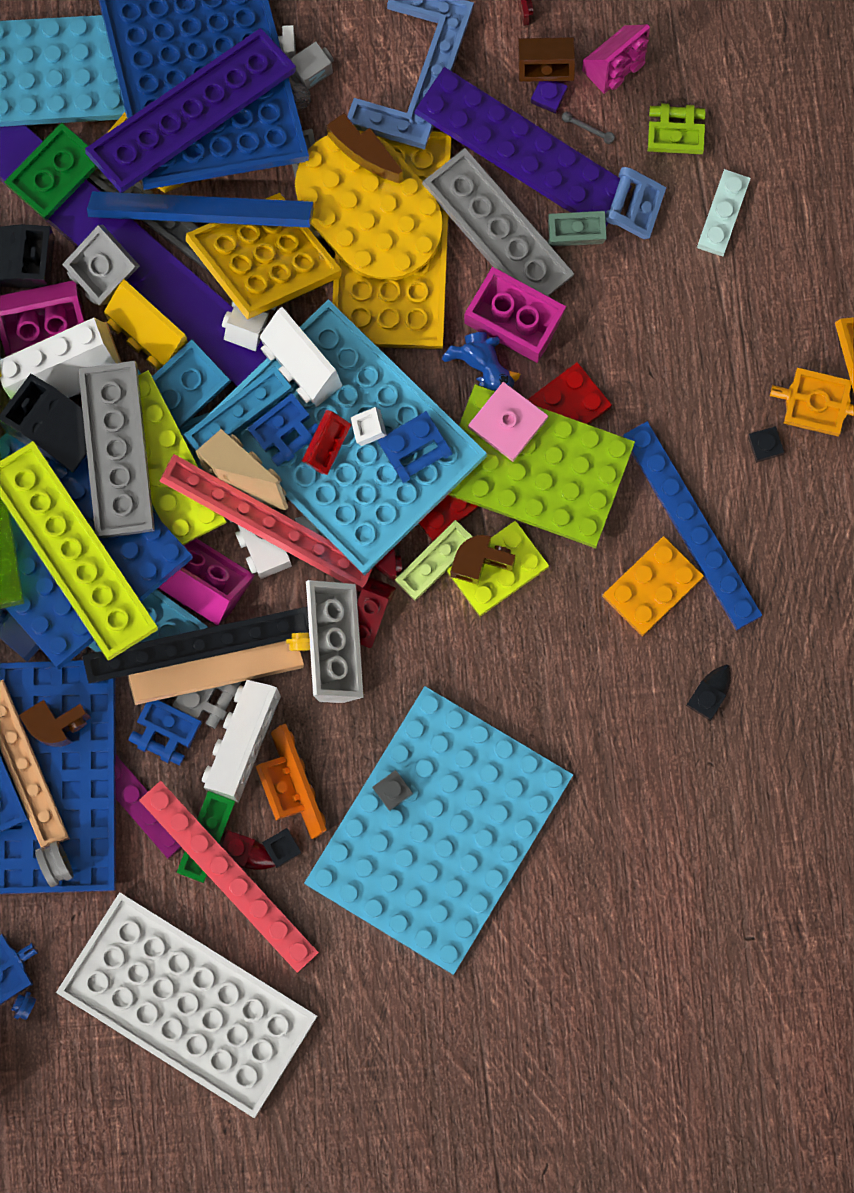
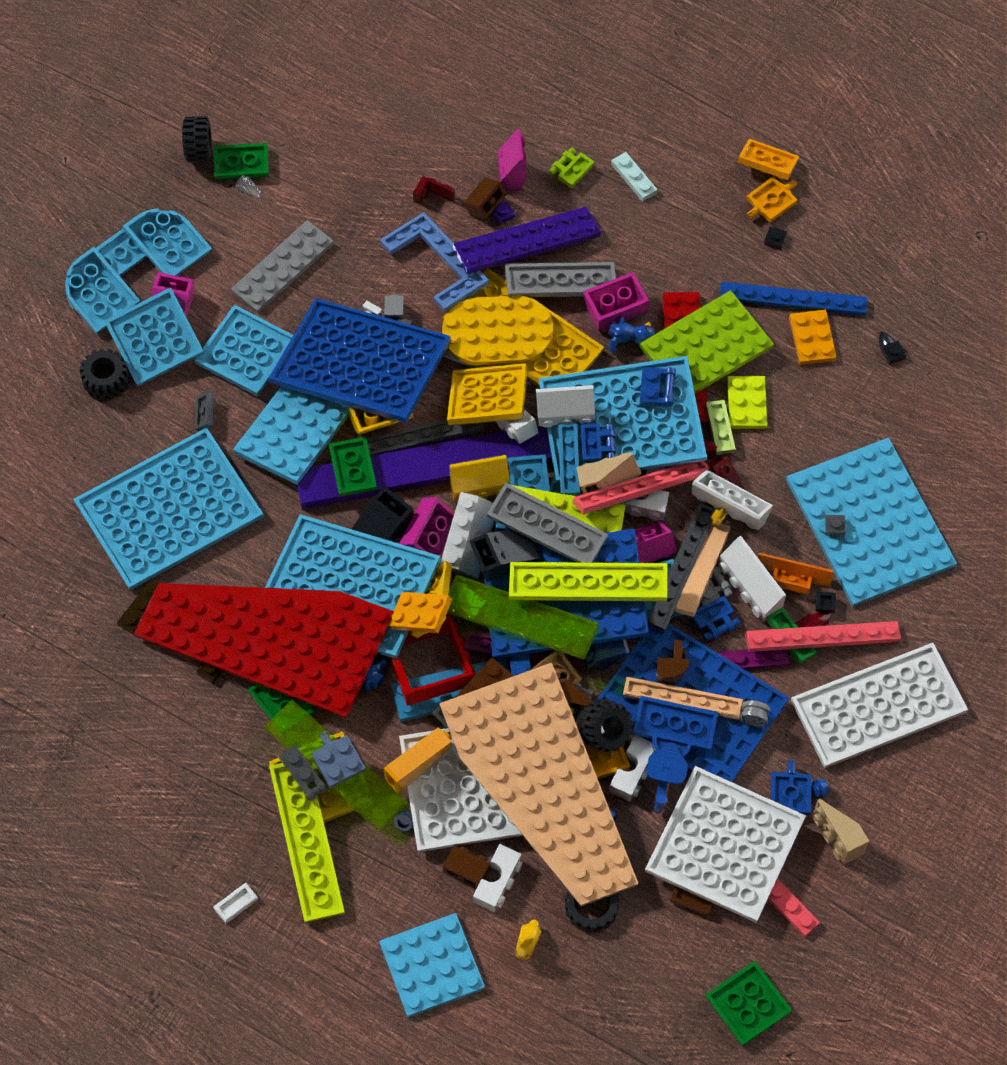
camera: 60 degrees left, 15 degrees down
(100, 265) = (429, 475): light grey plate -> none
(190, 110) = (380, 371): dark purple plate -> none
(200, 209) = (436, 407): blue tile -> none
(326, 442) = (621, 425): red plate -> none
(364, 149) = (471, 306): reddish brown slope -> none
(368, 426) = (629, 399): white plate -> none
(474, 554) = (737, 401): reddish brown brick -> none
(508, 421) = (675, 338): bright pink plate -> none
(577, 228) = (592, 242): sand green panel -> none
(607, 137) = (549, 201): dark grey hinge -> none
(643, 204) = (605, 211): medium blue plate -> none

